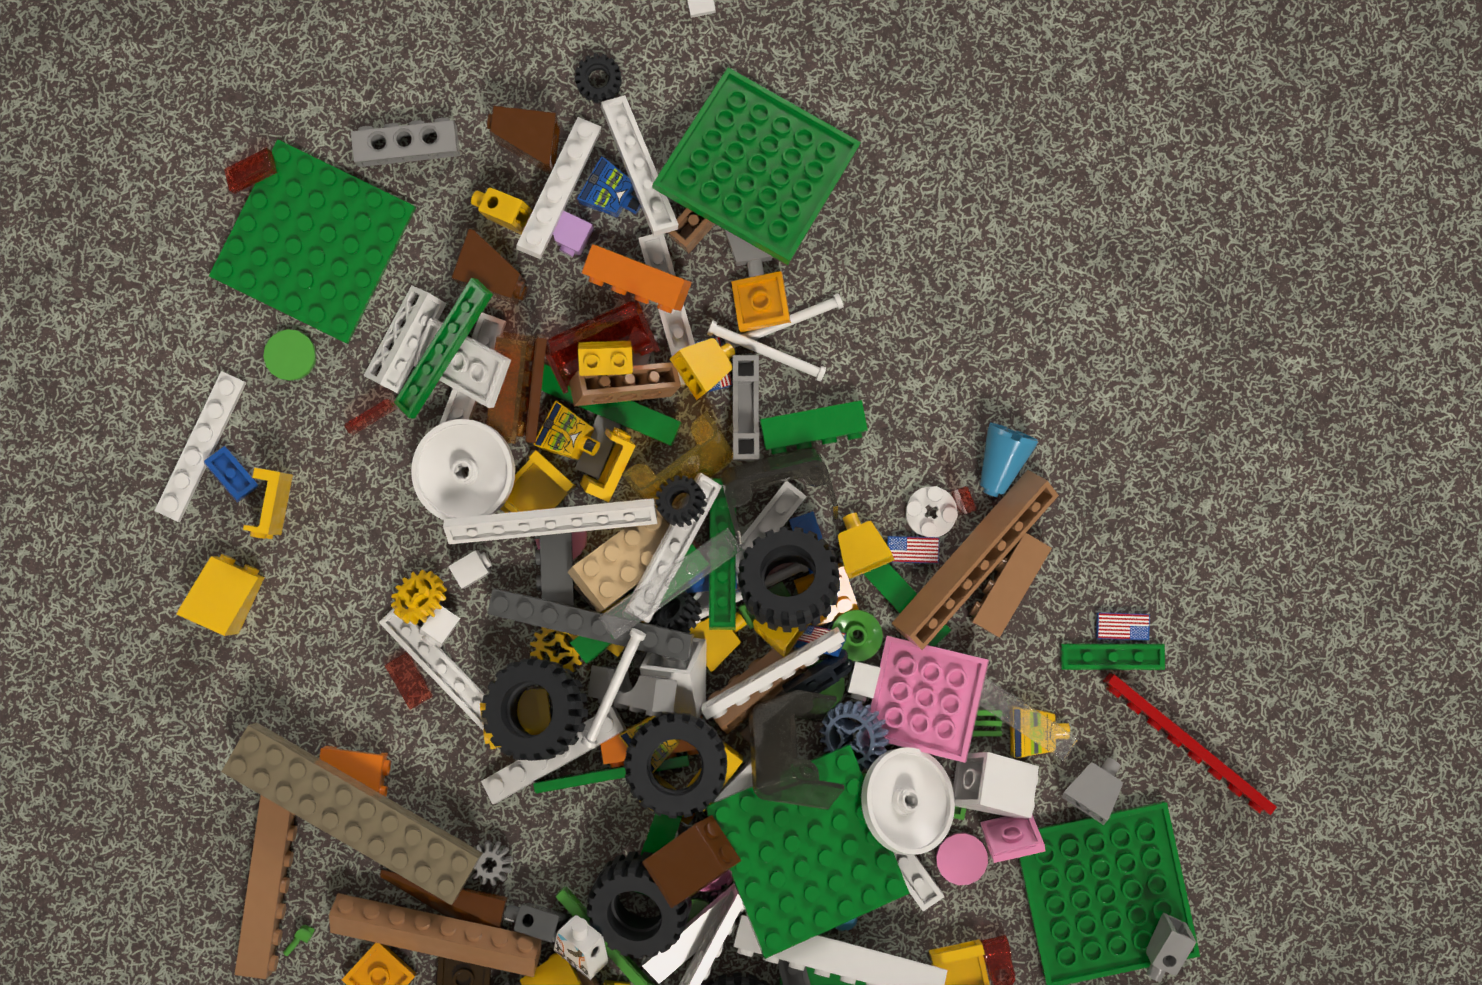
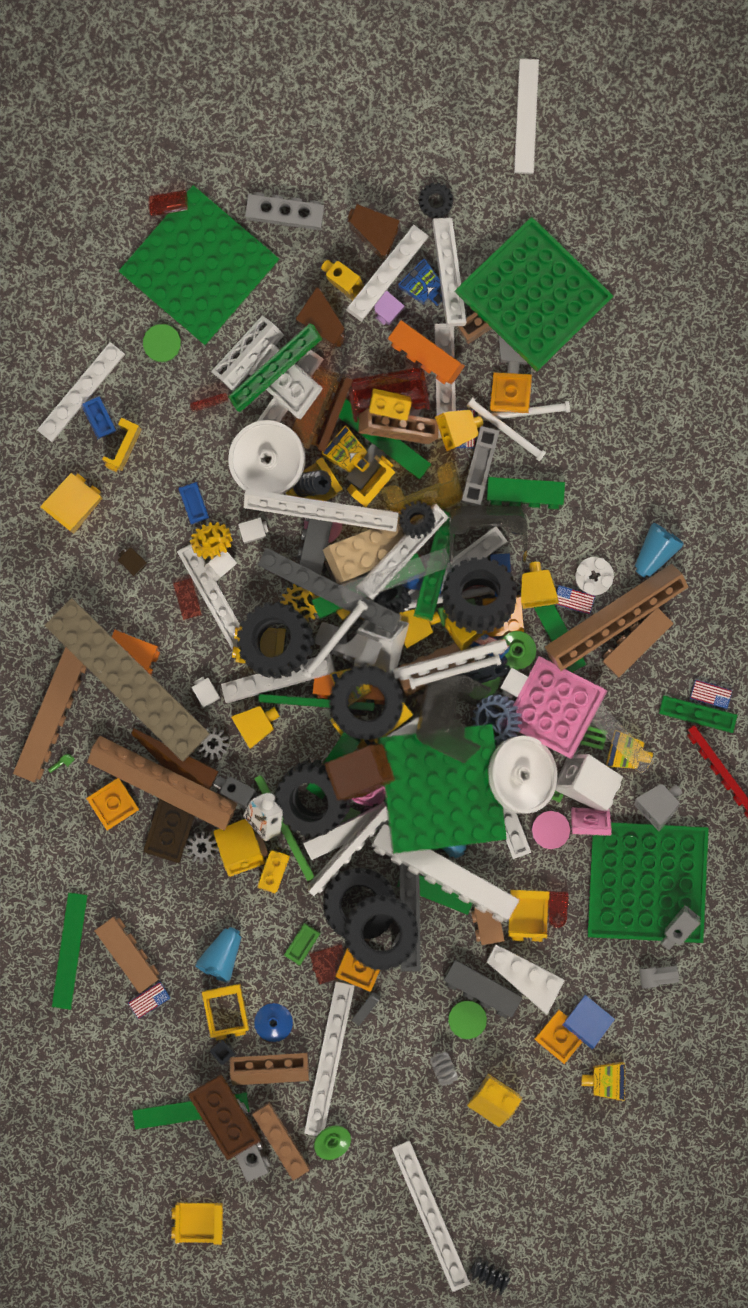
camera: 25 degrees right, 0 degrees up
(322, 651) = (132, 561): none -> dark brown brick
(384, 553) = (193, 503): none -> blue tile
(462, 797) = (205, 691): none -> white brick
(532, 488) = (313, 483): none -> black piece
(539, 823) = (255, 724): none -> yellow torso
(782, 688) = (454, 671): none -> white bar
(963, 500) = (619, 572): clear red tile -> none

